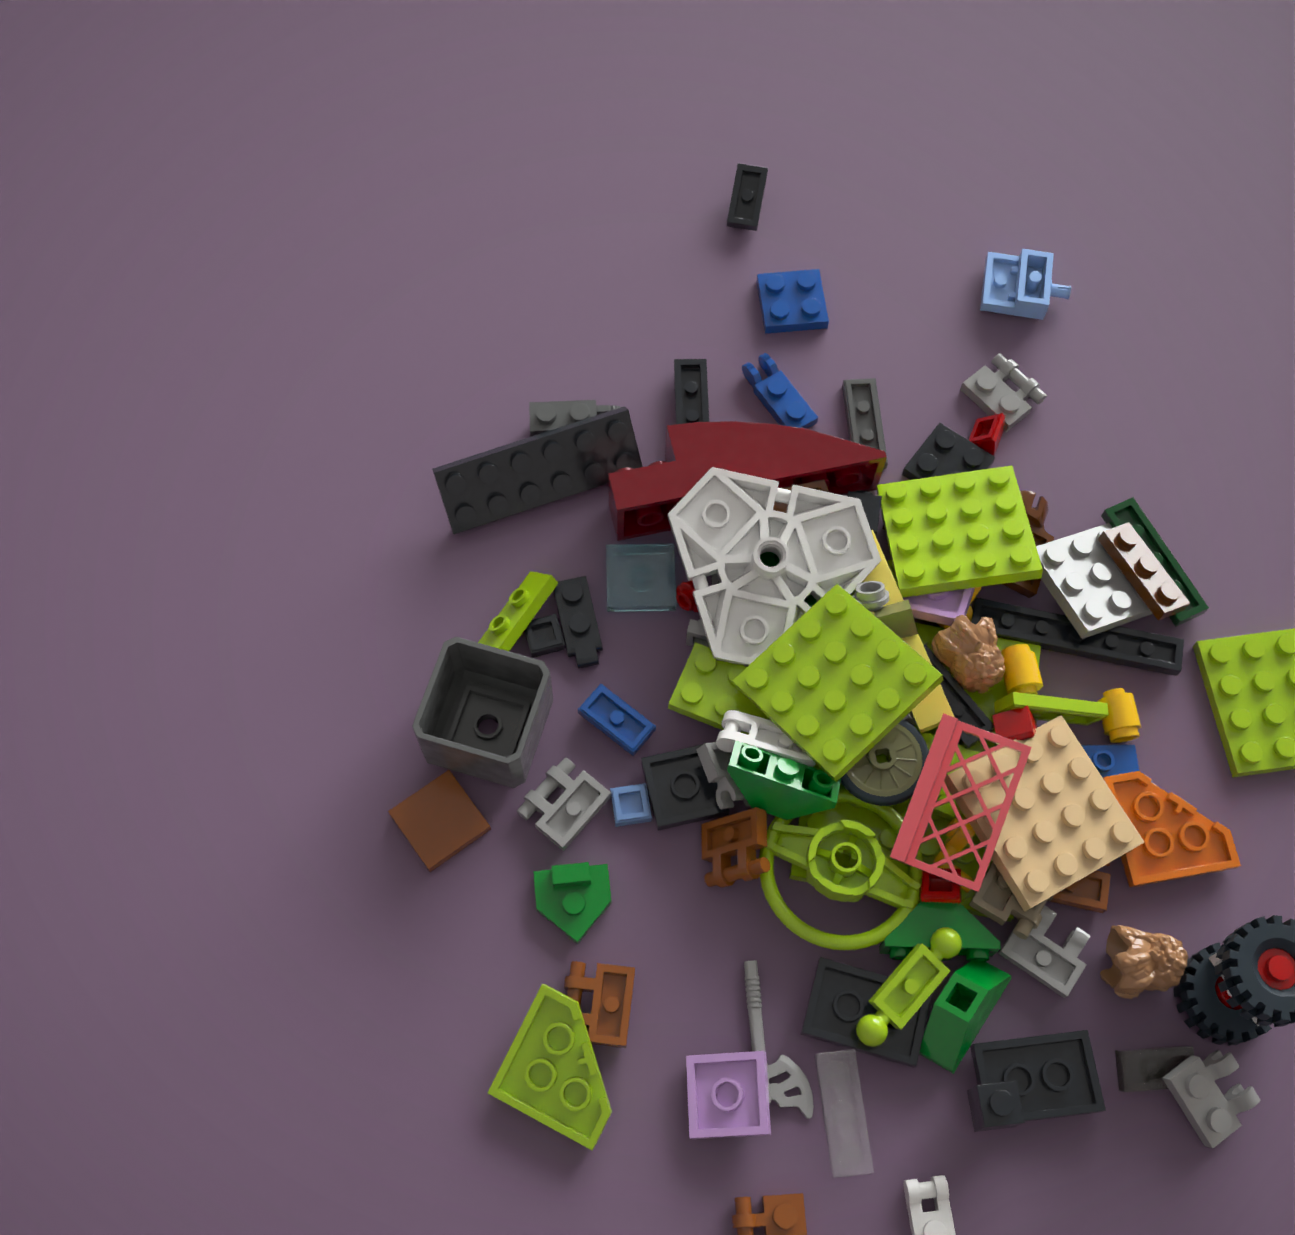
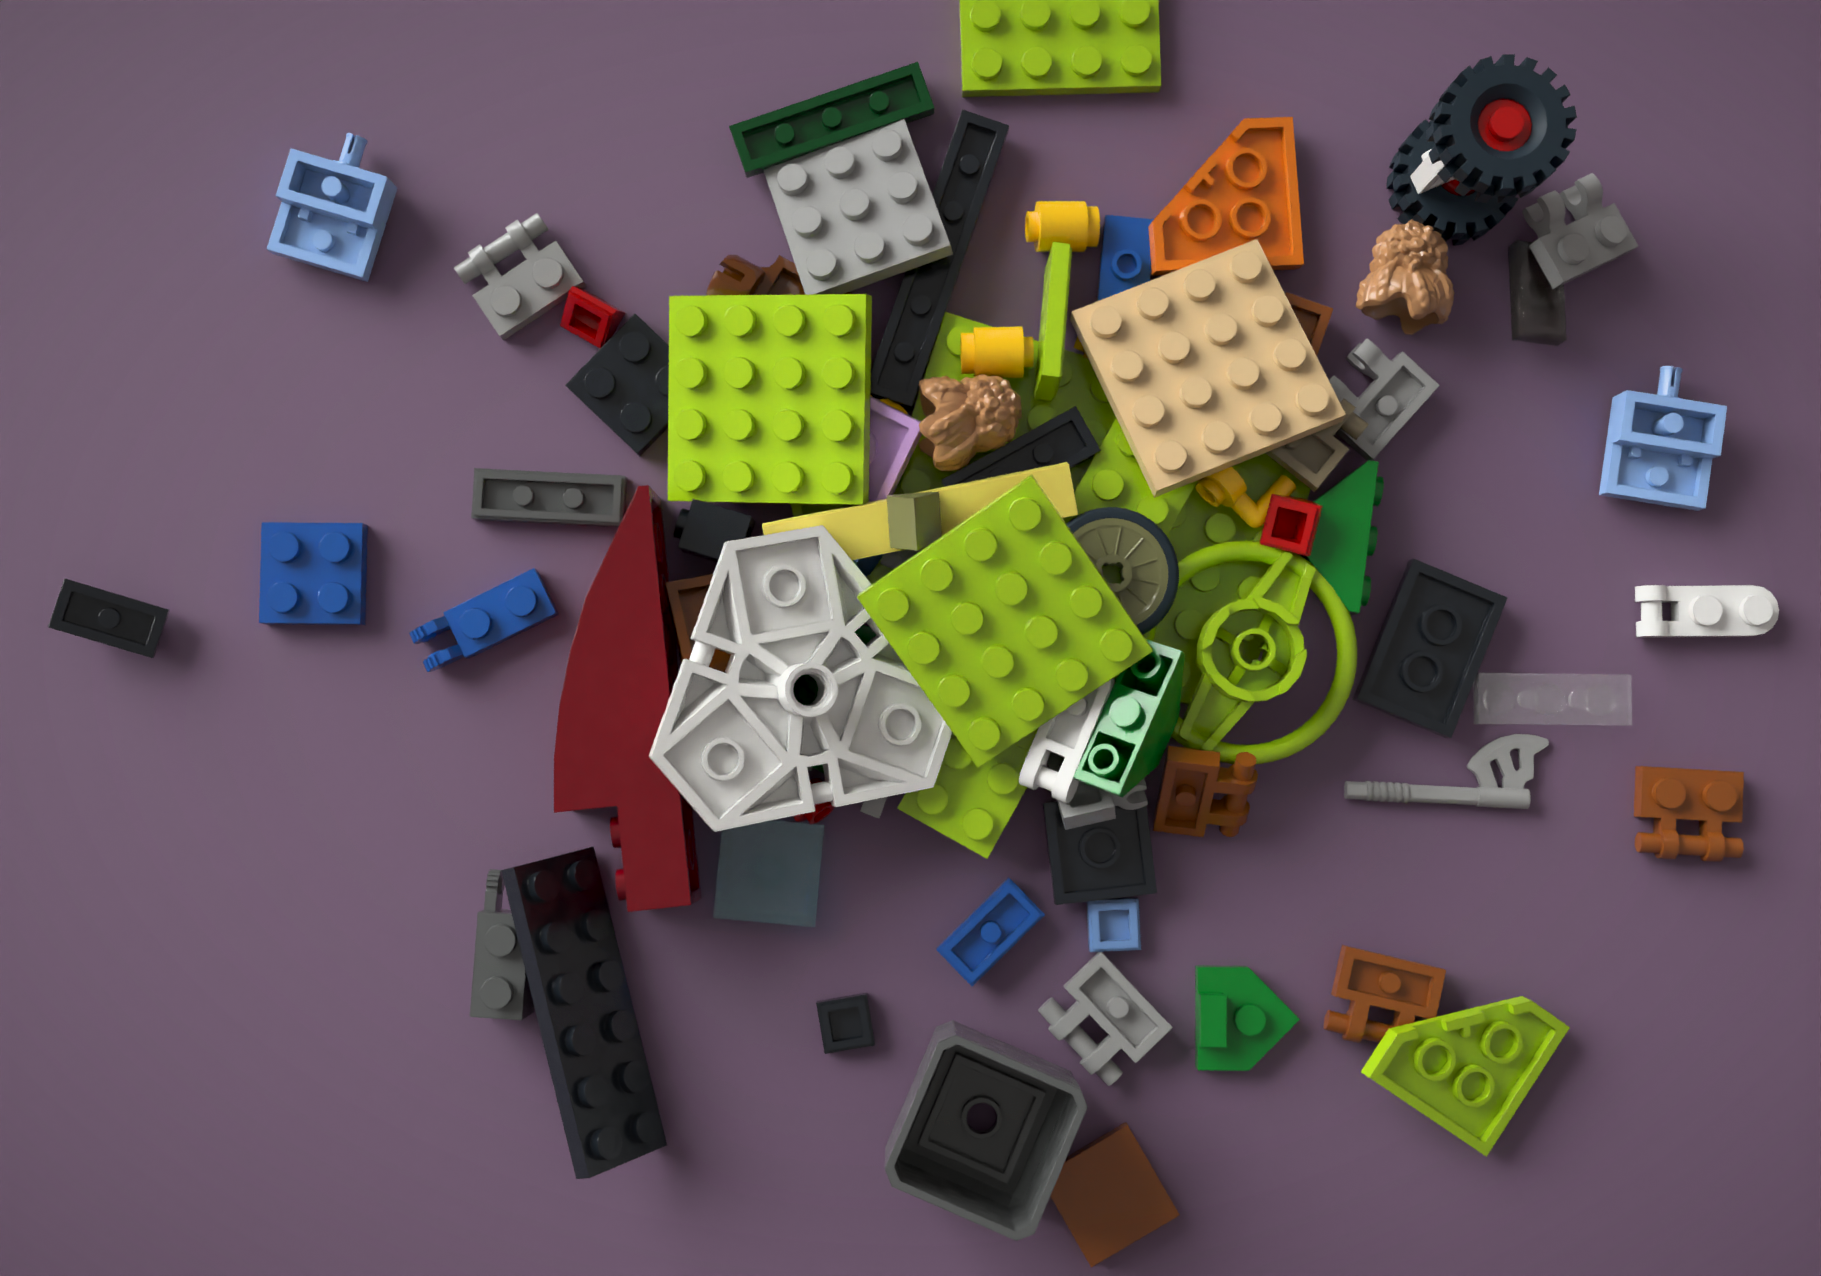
camera: 85 degrees left, 20 degrees up
(519, 611) = (817, 1064): lime plate -> none
(578, 621) = (828, 970): black hinge -> none
(691, 391) = (481, 758): black plate -> none
(728, 1095) = (1520, 845): lavender plate -> none
(871, 595) = (875, 549): light grey plate -> none
(908, 986) = (1416, 591): lime plate -> none
(928, 790) = (1176, 521): coral fence -> none
(962, 1012) = (1445, 523): green slope -> none
(995, 1106) = (1580, 510): black brick -> none
(1015, 724) = (1084, 380): red slope -> none
(1052, 1073) = (1533, 445): black plate -> none
(1058, 1182) = (1662, 446): none -> light blue plate
(1143, 571) = (858, 142): plate -> none

